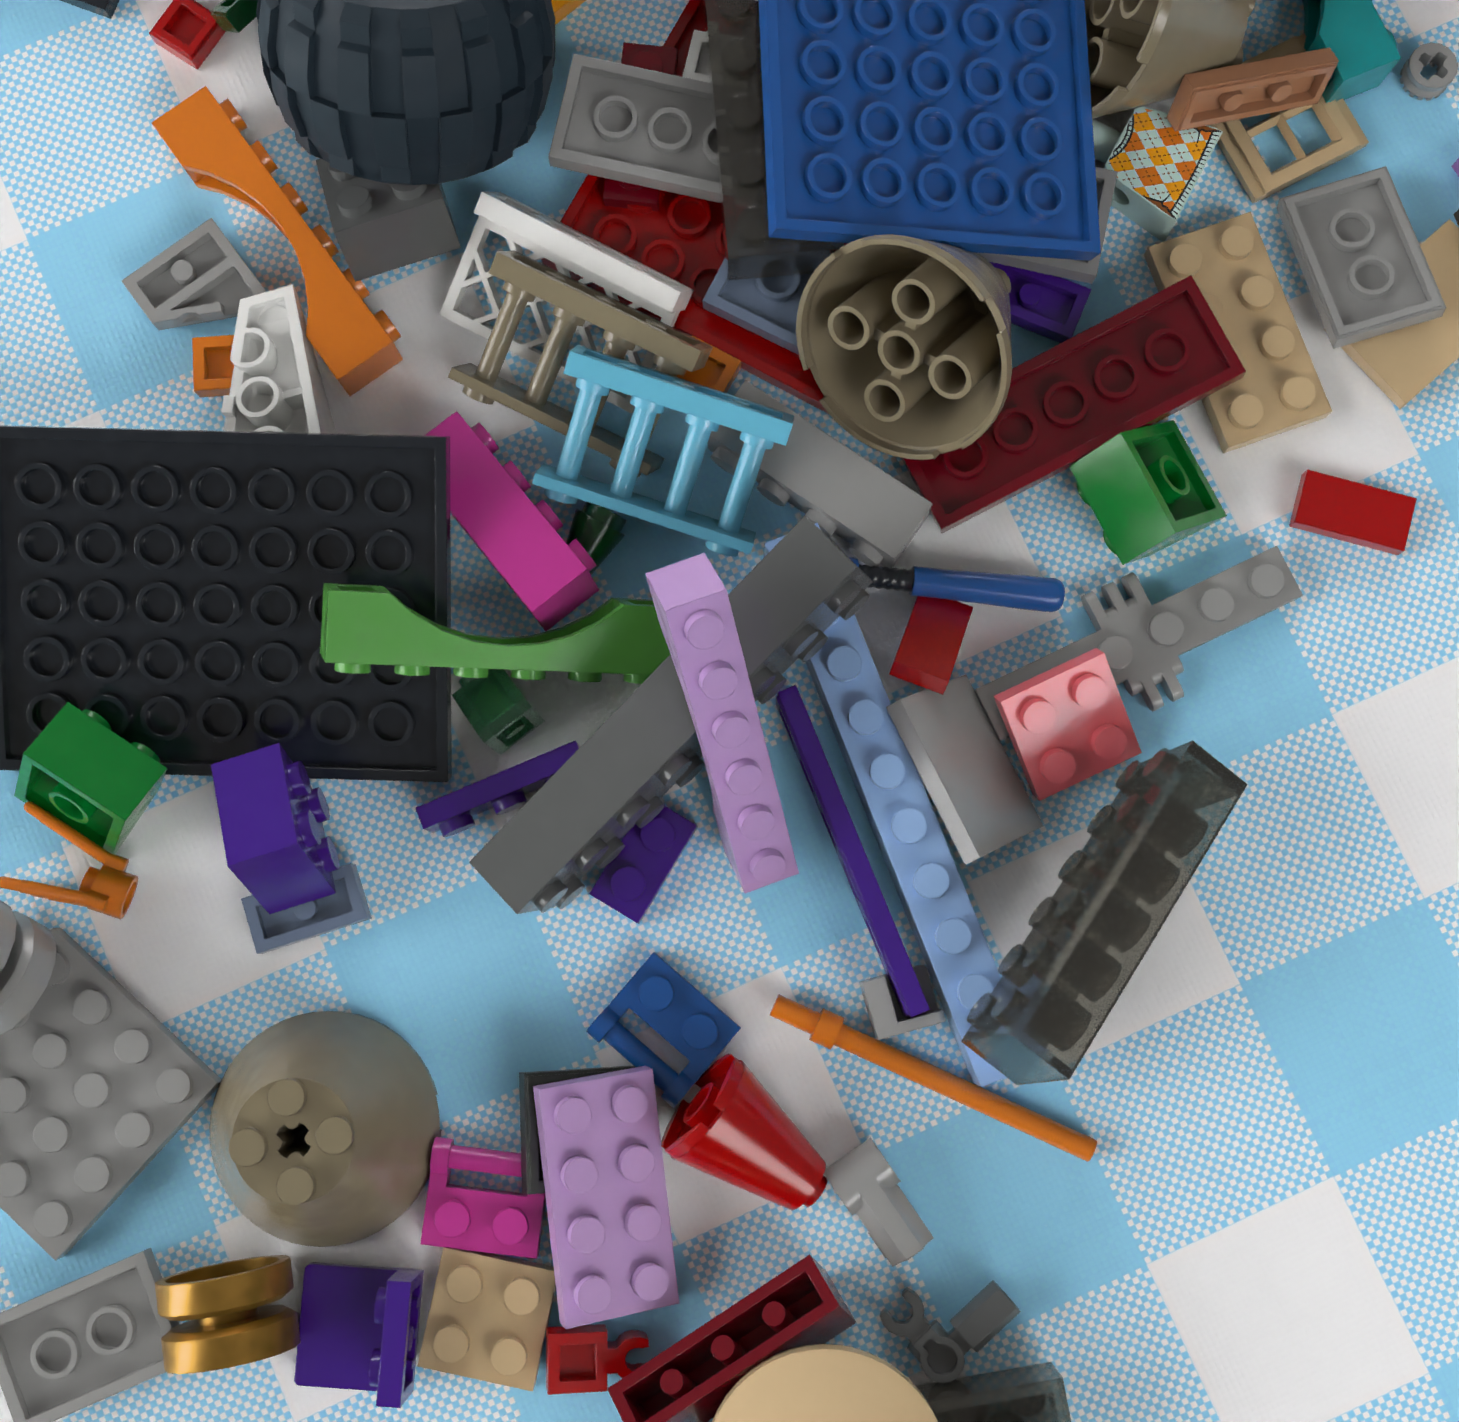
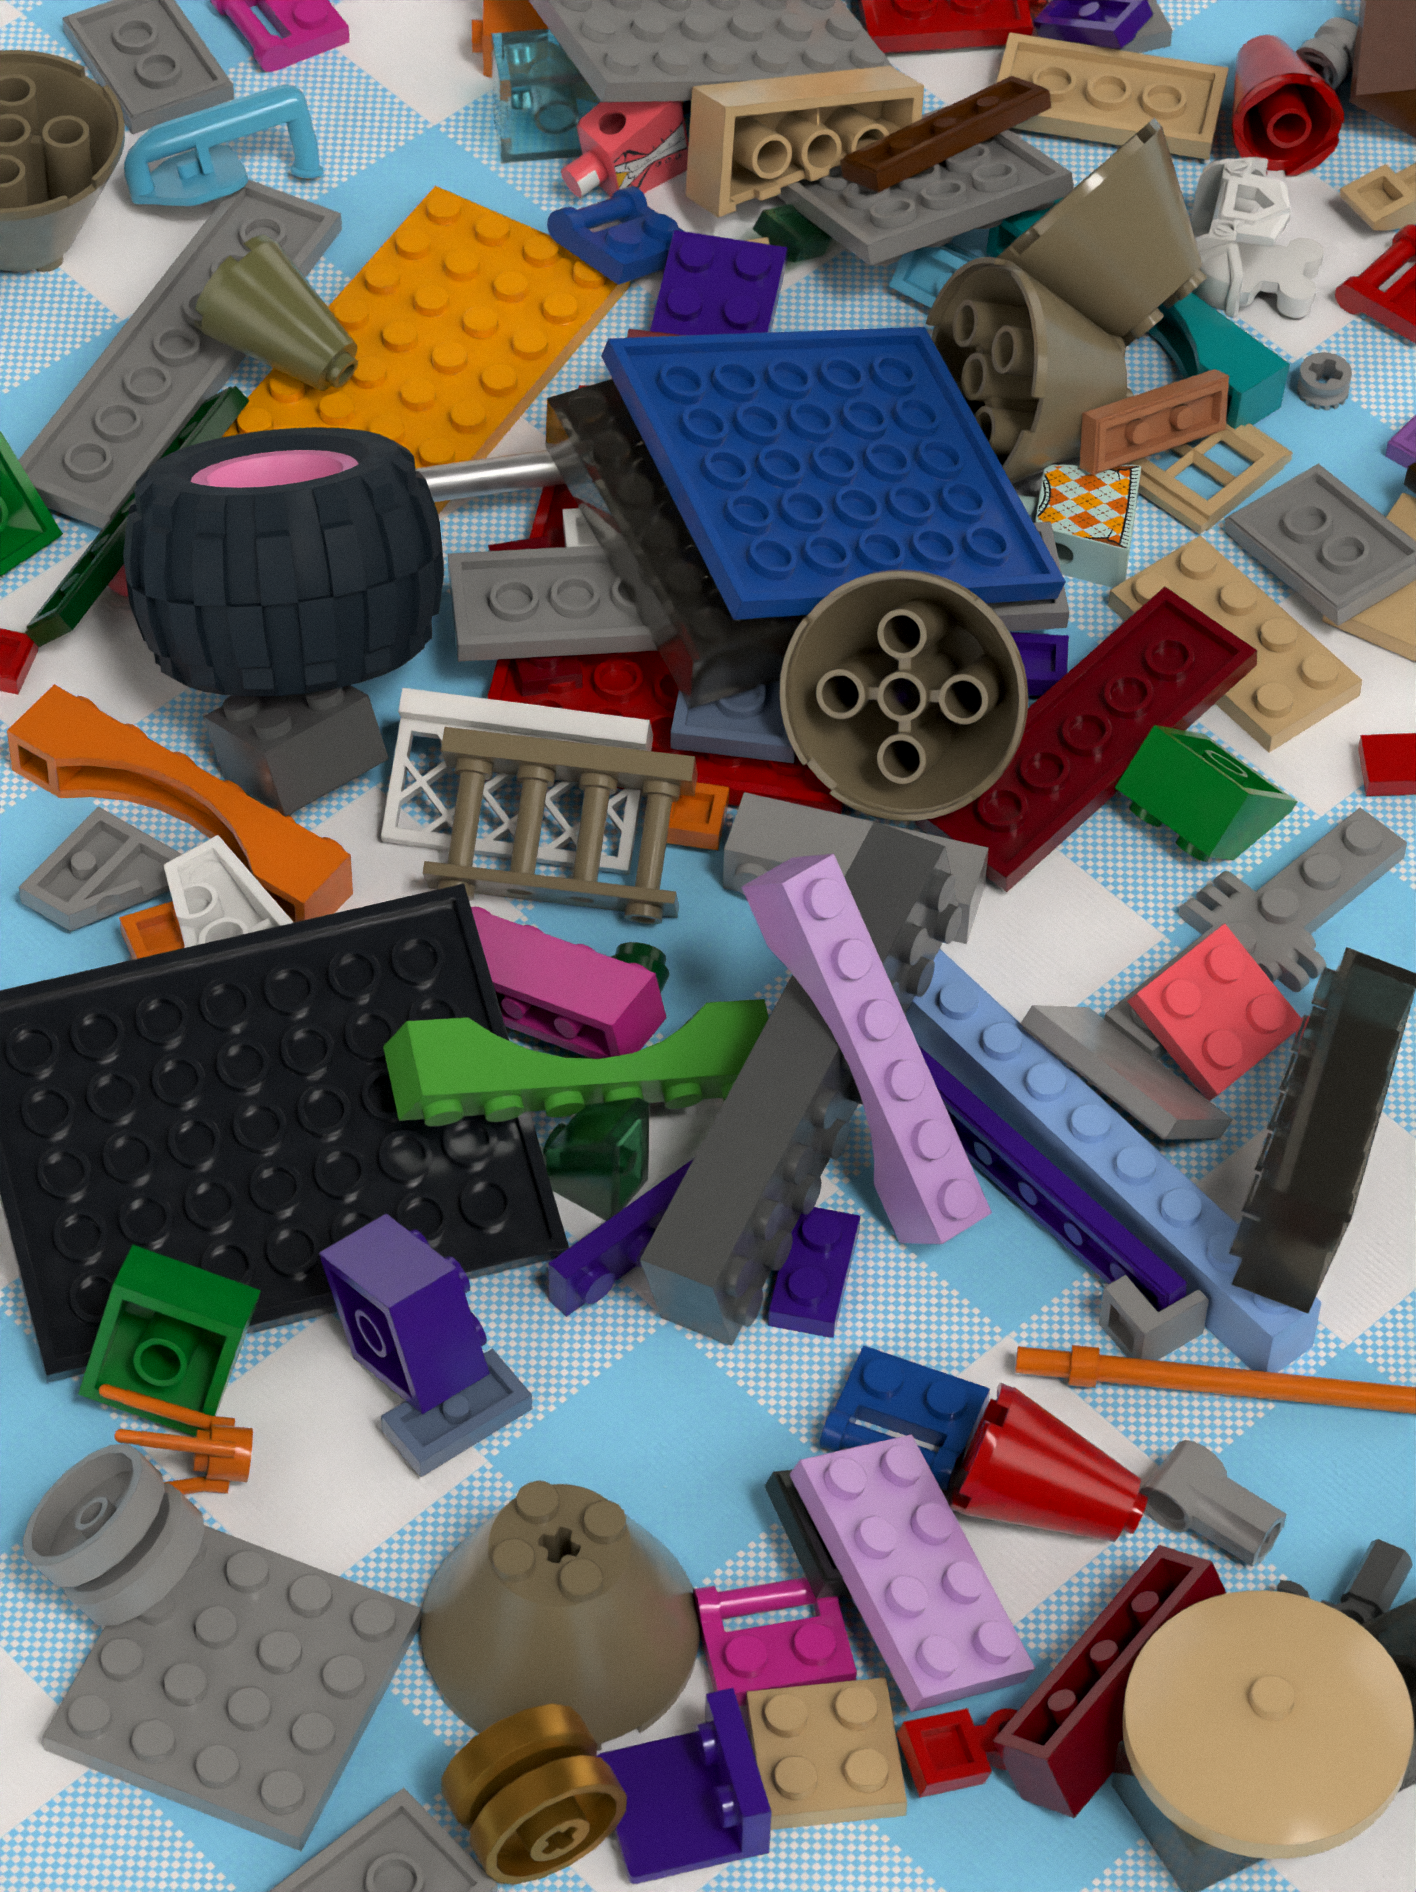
camera: 25 degrees left, 30 degrees down
(650, 395) = (657, 810): medium azure fence -> none
(931, 642) = (1040, 974): red tile -> none
(969, 586) = (1063, 923): blue piece -> none

